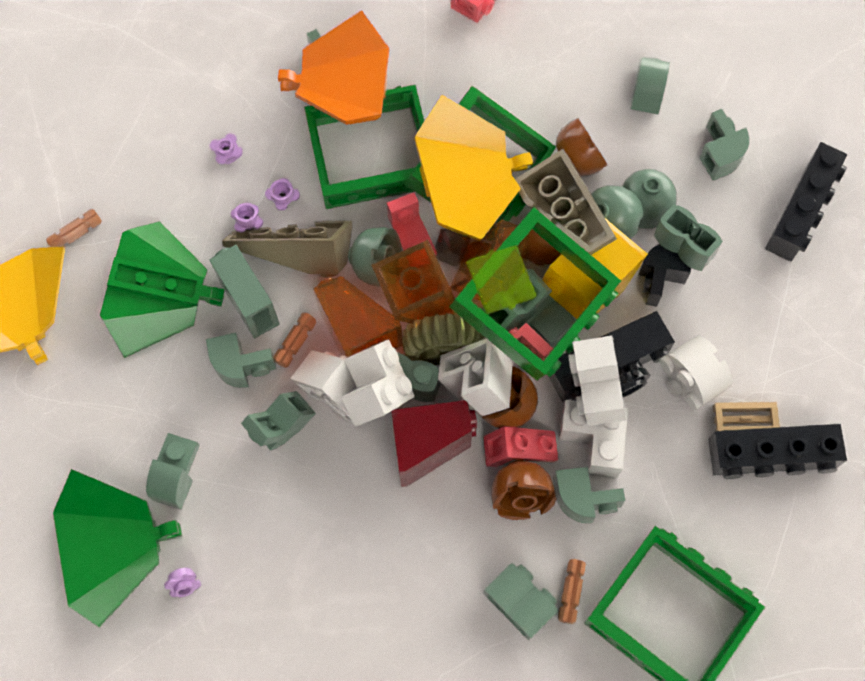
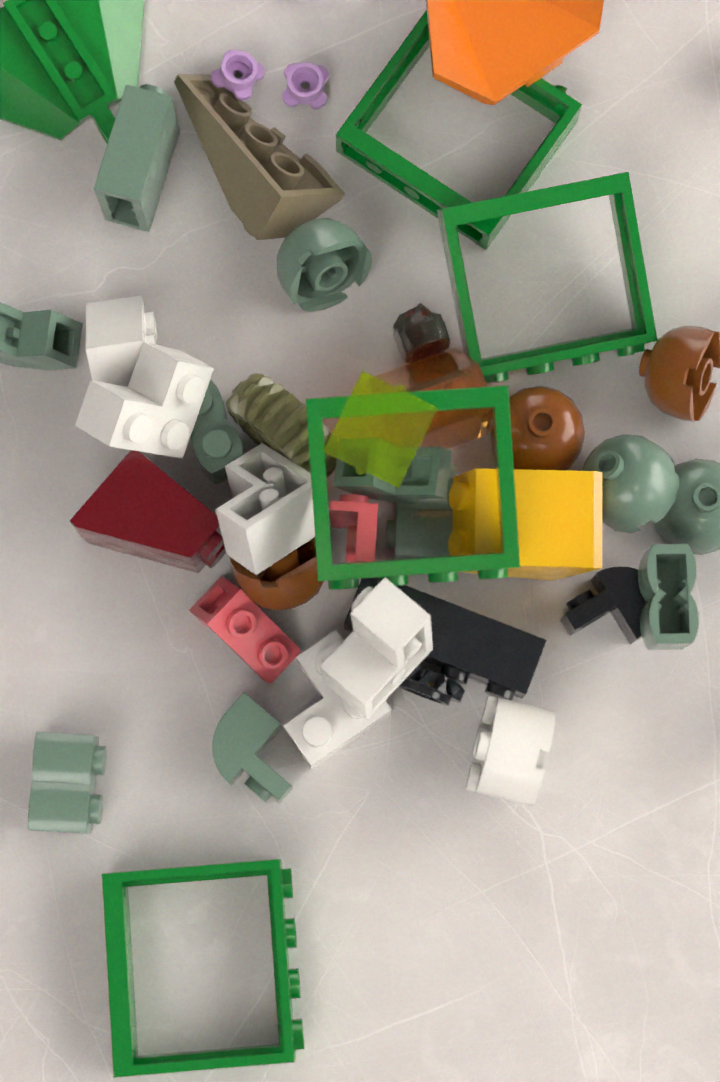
camera: 45 degrees right, 10 degrees up
(233, 365) = (47, 222): sand green brick -> none
(294, 340) = (142, 265): nougat axle -> none
(354, 317) = (211, 307): clear orange slope -> none
(405, 219) = (394, 270): coral bracket -> none
(414, 284) = (311, 338): clear orange slope -> none
(466, 168) = (509, 265): yellow panel -> none
(522, 489) = (191, 672): dark orange cylinder -> none
(564, 199) = (580, 415): dark tan wedge -> none
(571, 591) = (129, 830): nougat axle -> none
(719, 419) = (547, 887): tan tile -> none
(777, 450) = (509, 925): black brick -> none

